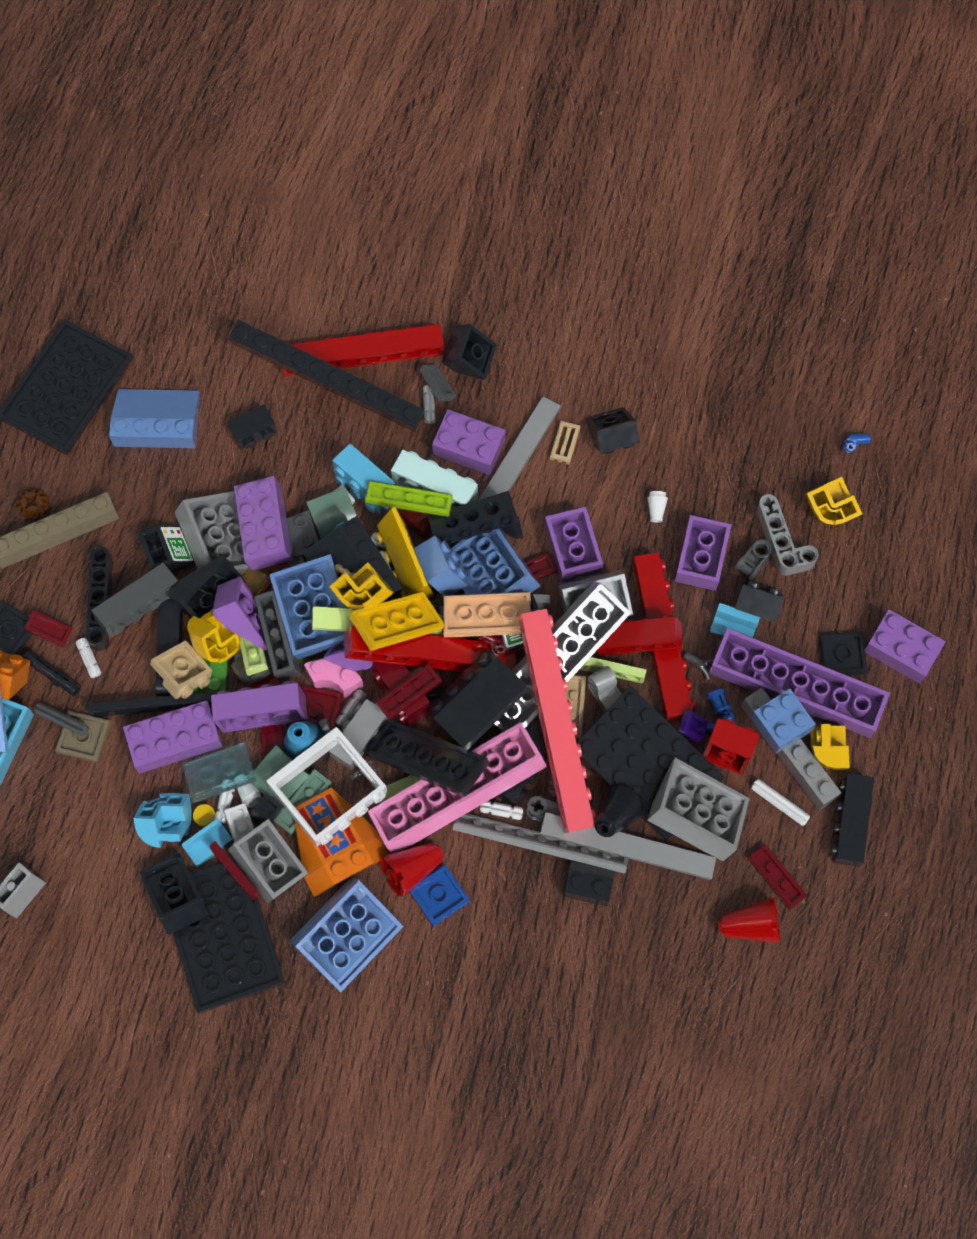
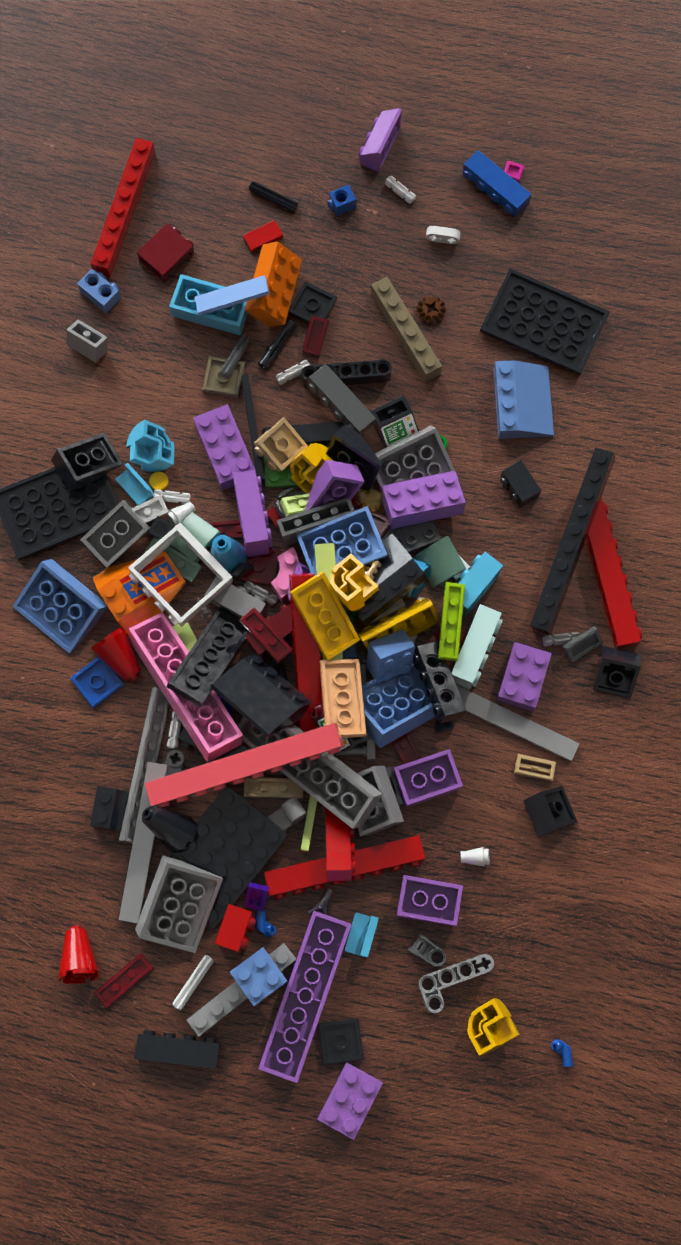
camera: 85 degrees right, 5 degrees up
(219, 772) = (195, 488): clear light blue tile -> none
(234, 871) = (97, 515): dark red tile -> none
(718, 702) = (281, 922): blue bush -> none
(759, 600) = (385, 957): black slope -> none
(830, 747) = (243, 1026): yellow brick -> none

